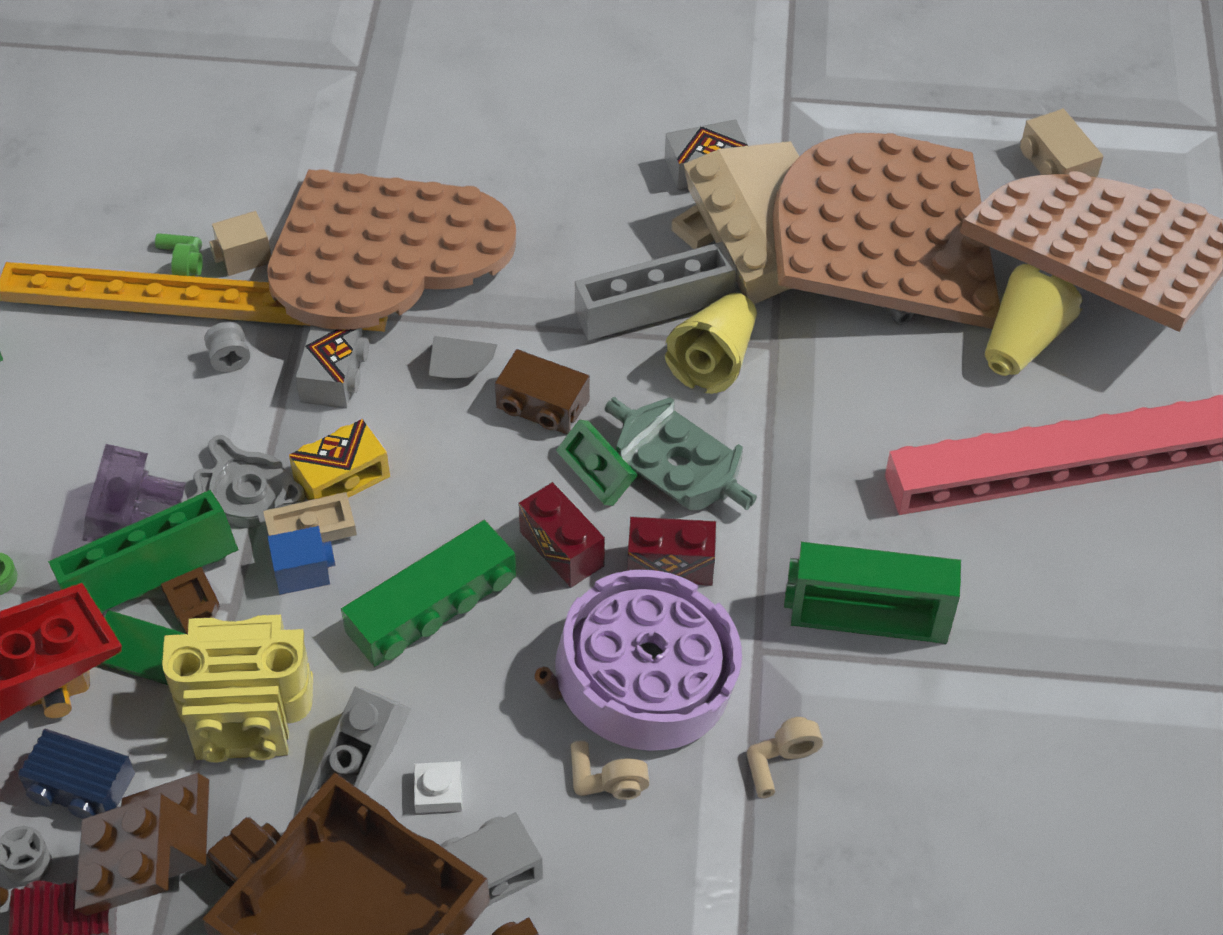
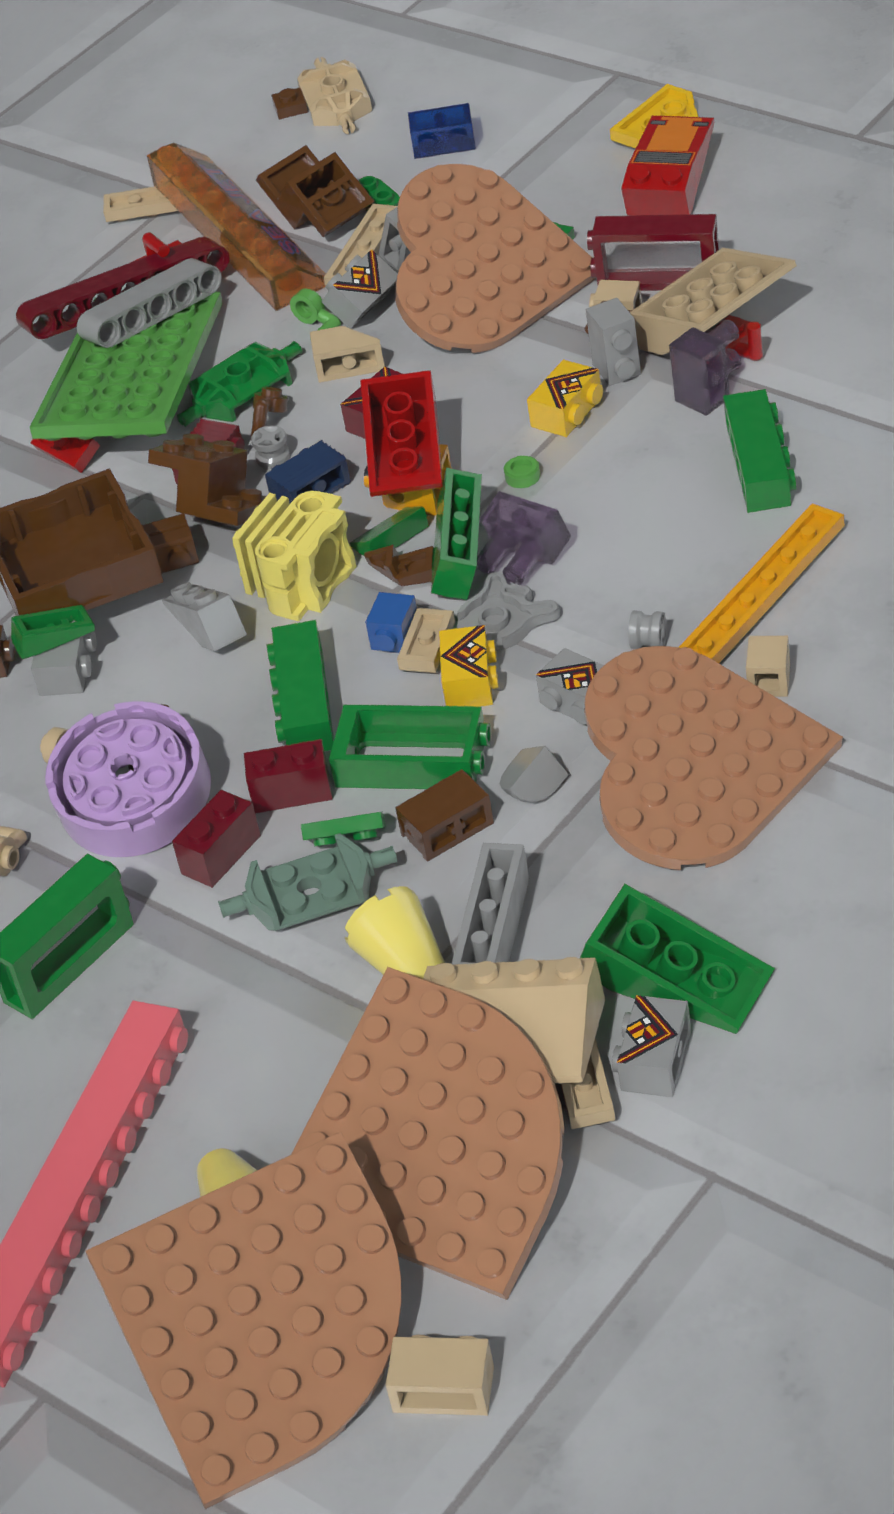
camera: 130 degrees right, 10 degrees down
(185, 256) = (772, 622): bright green plate -> none
(437, 787) = (148, 656): white plate -> none
(471, 408) = (407, 727): none -> green piece
(507, 875) = (48, 629): none -> green slope
(621, 181) = (663, 955): none -> green slope

